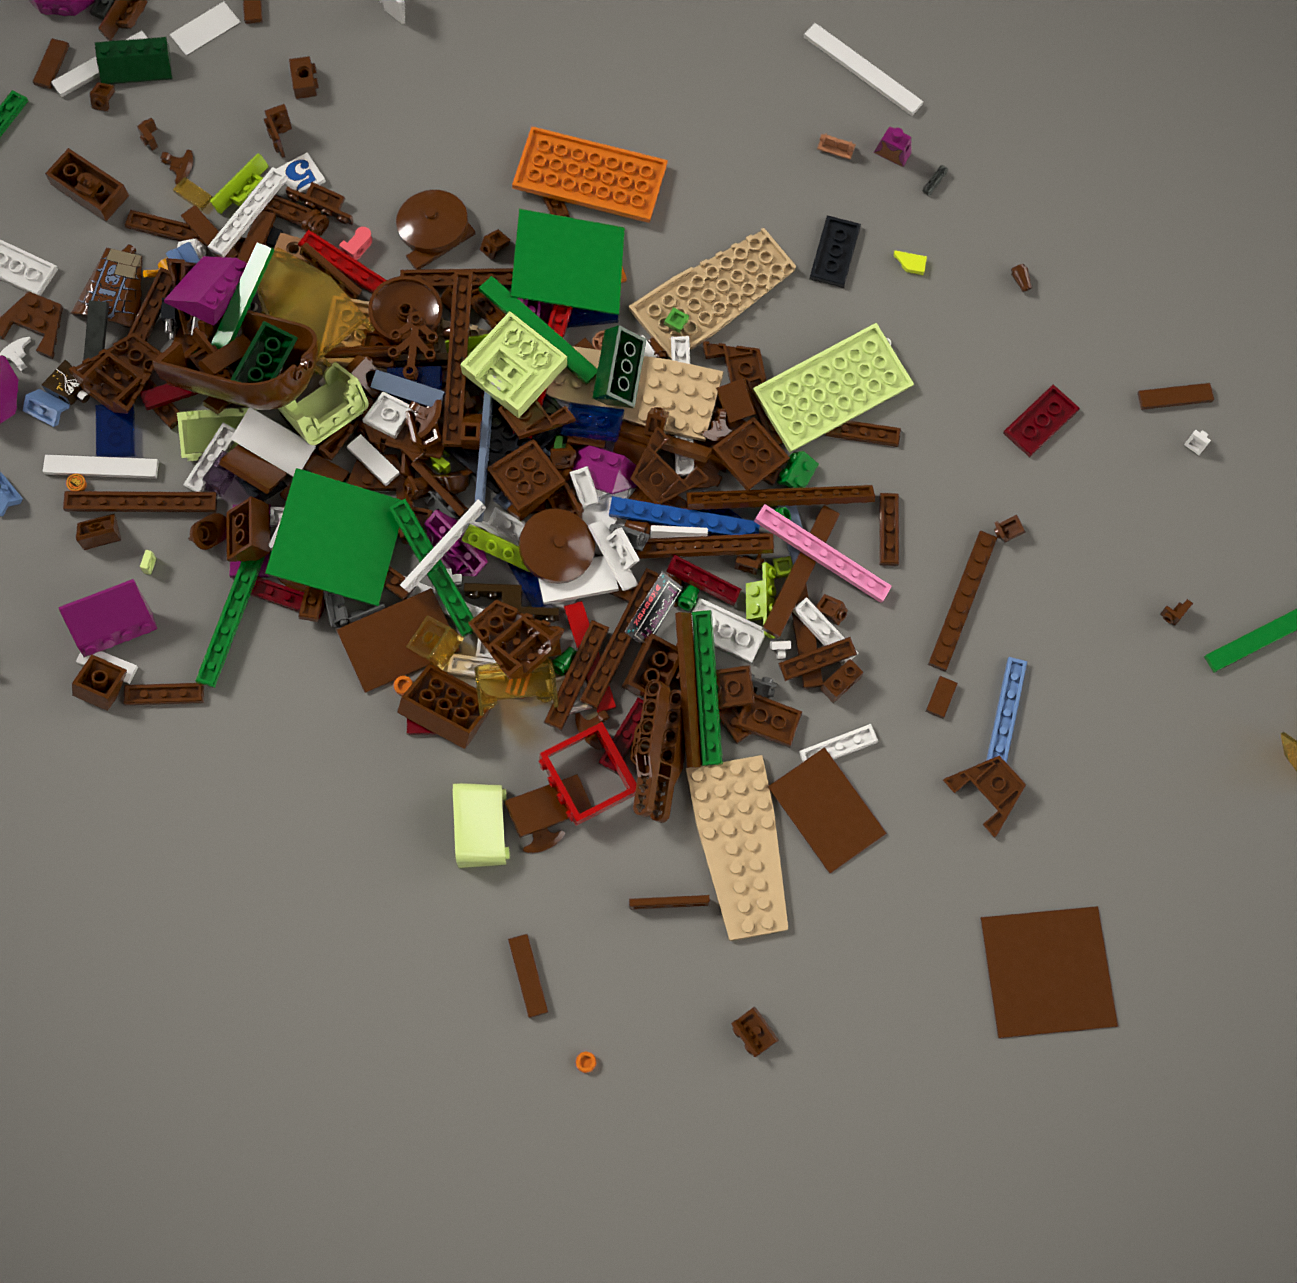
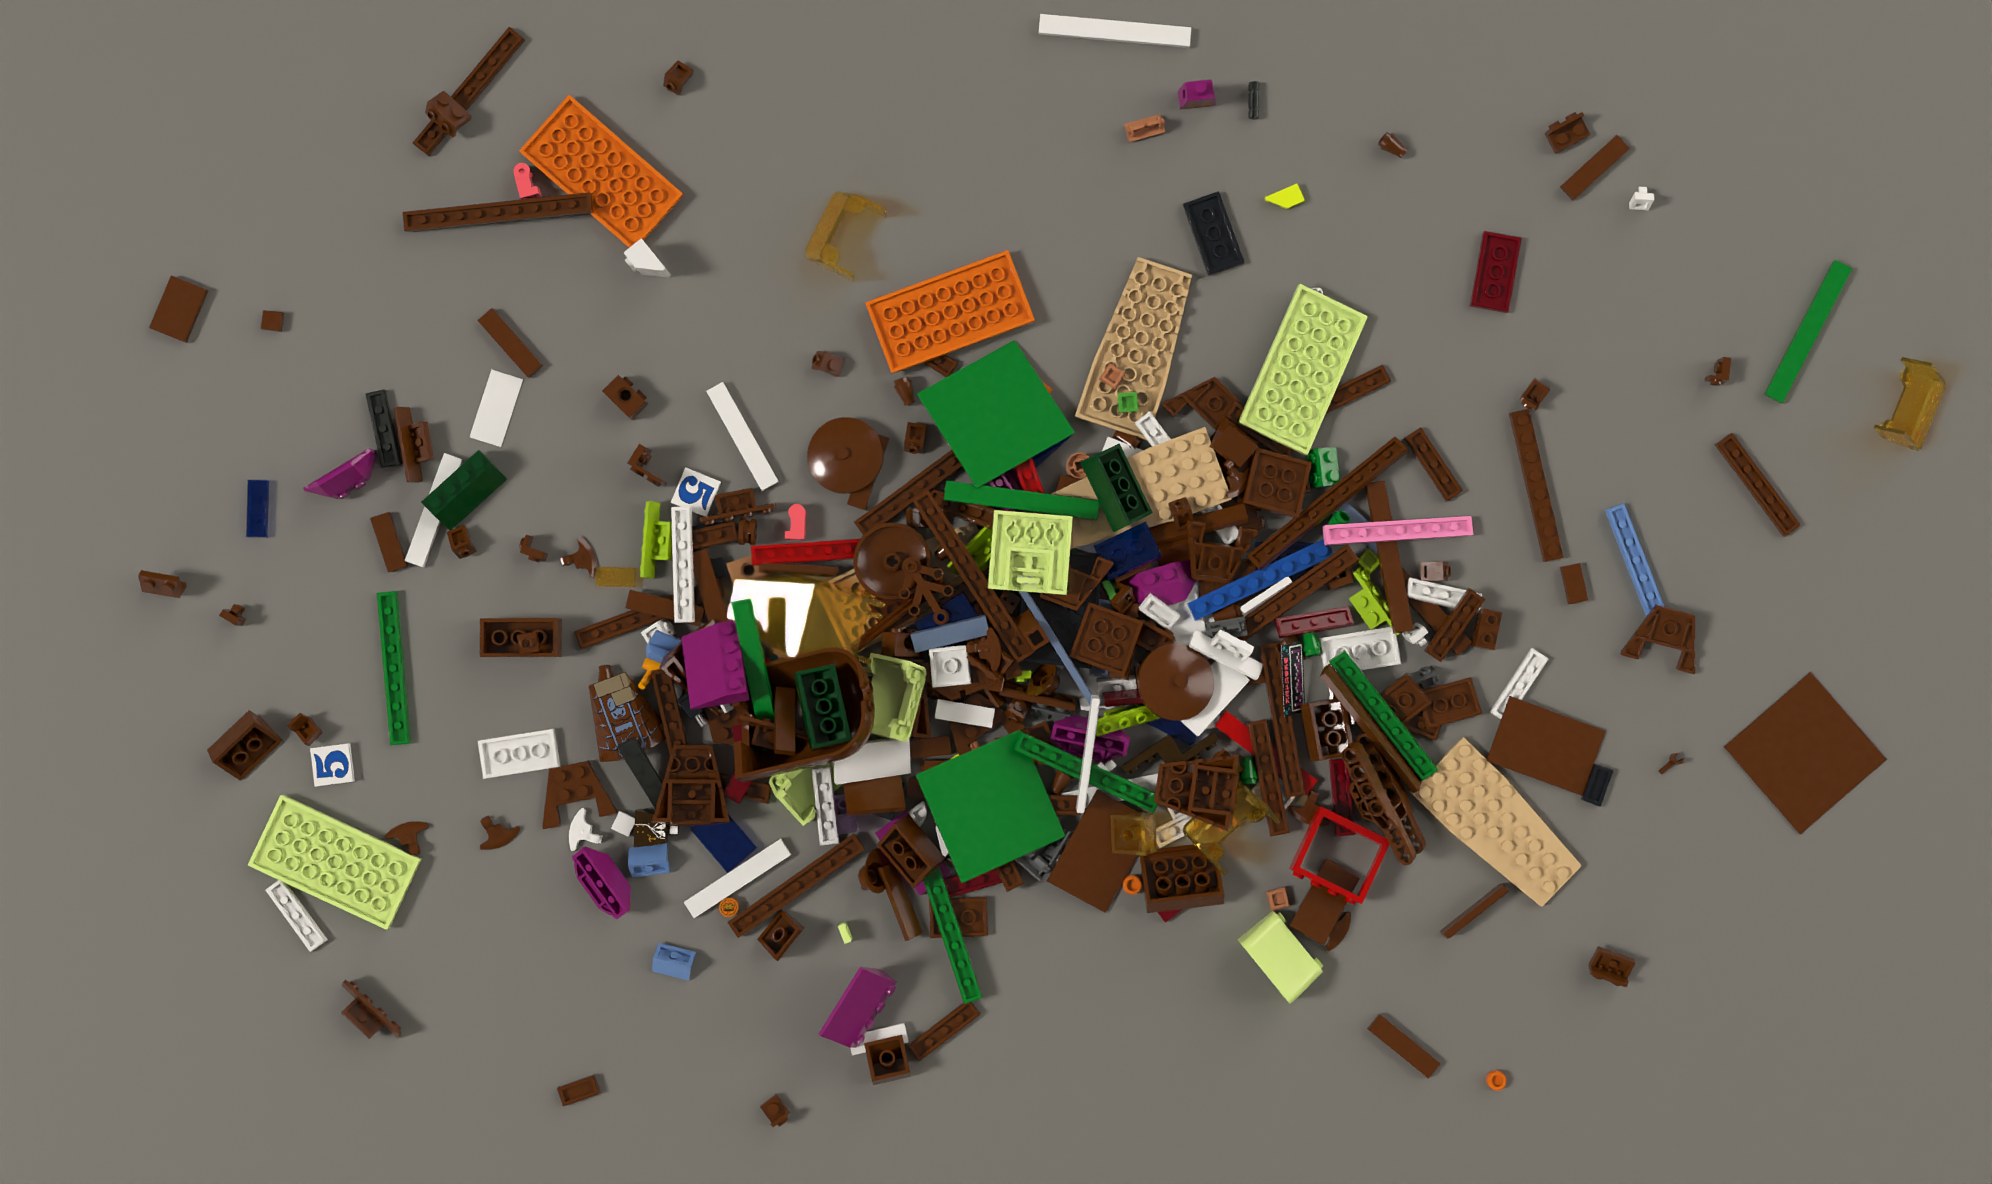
camera: 30 degrees left, 15 degrees up
(48, 366) = (624, 823): none -> white tile
(209, 569) = (900, 901): none -> reddish brown tile
(256, 619) = (970, 914): none -> reddish brown tile
(366, 160) = (742, 436): none -> white tile
(408, 565) = (1061, 781): none -> reddish brown cone
(471, 151) = (827, 363): none -> reddish brown bracket
(503, 530) = (1123, 697): none -> dark red tile
(513, 204) = (904, 389): none -> reddish brown cone
(513, 779) = (1277, 898): none -> nougat tile
(530, 70) = (819, 248): none -> clear yellow windscreen
(679, 295) = (1112, 376): none -> nougat tile
(848, 873) = (1597, 785): none -> black tile
(927, 898) = (1672, 758): none -> reddish brown hand
(1151, 723) = (1757, 484): none -> reddish brown tile
(1170, 355) = (1567, 133): none -> reddish brown bracket

